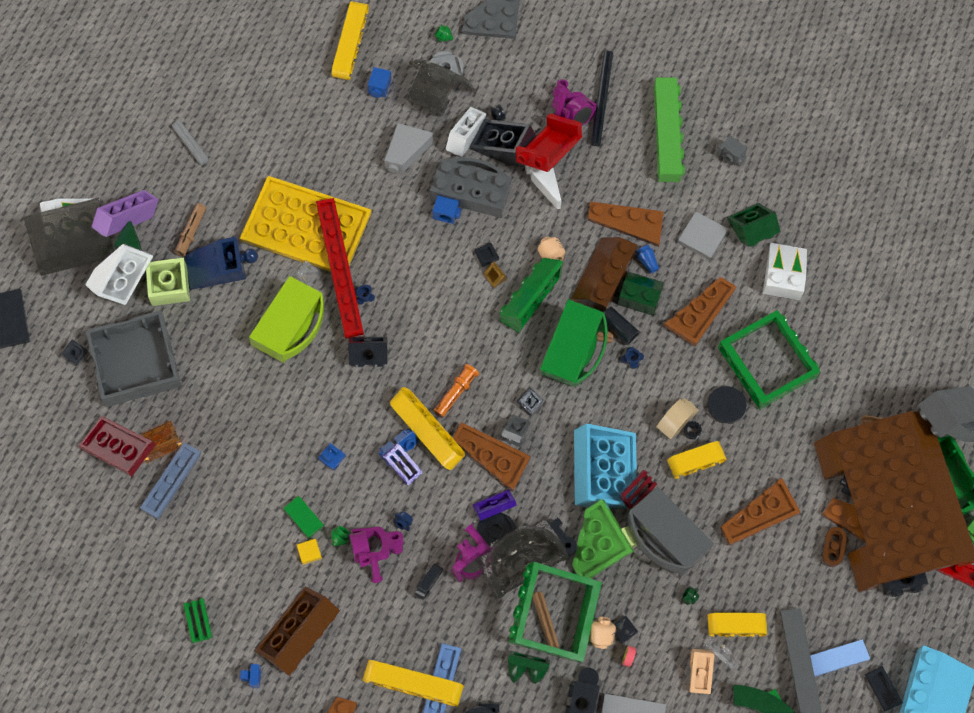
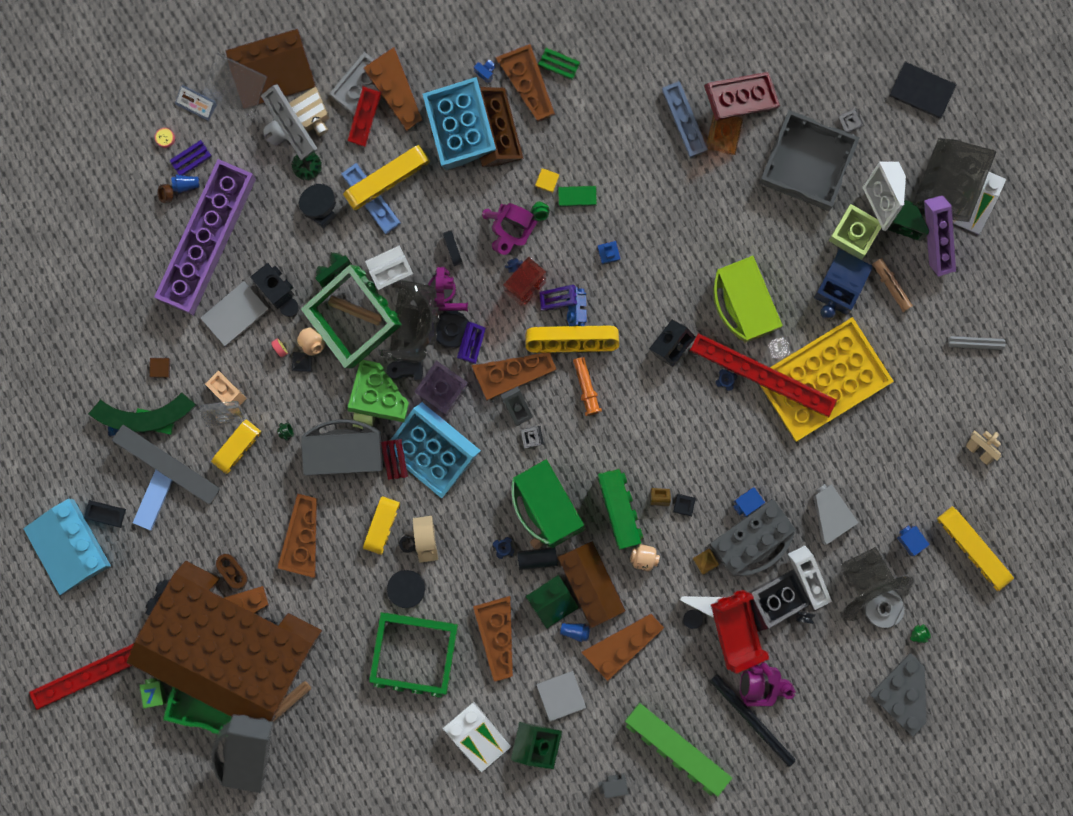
camera: 135 degrees right, 15 degrees up
(231, 637) = (527, 79): none -> dark orange wing
(264, 82) = (990, 452): none -> tan hips
(316, 655) = (459, 123): none -> medium azure slope
(411, 496) = (525, 281): none -> clear red brick
(489, 613) = (388, 267): none -> white panel
(516, 209) = (705, 561): none -> pearl gold tile
(551, 496) = (441, 388): none -> clear purple brick
(566, 187) = (692, 619): none -> black tile

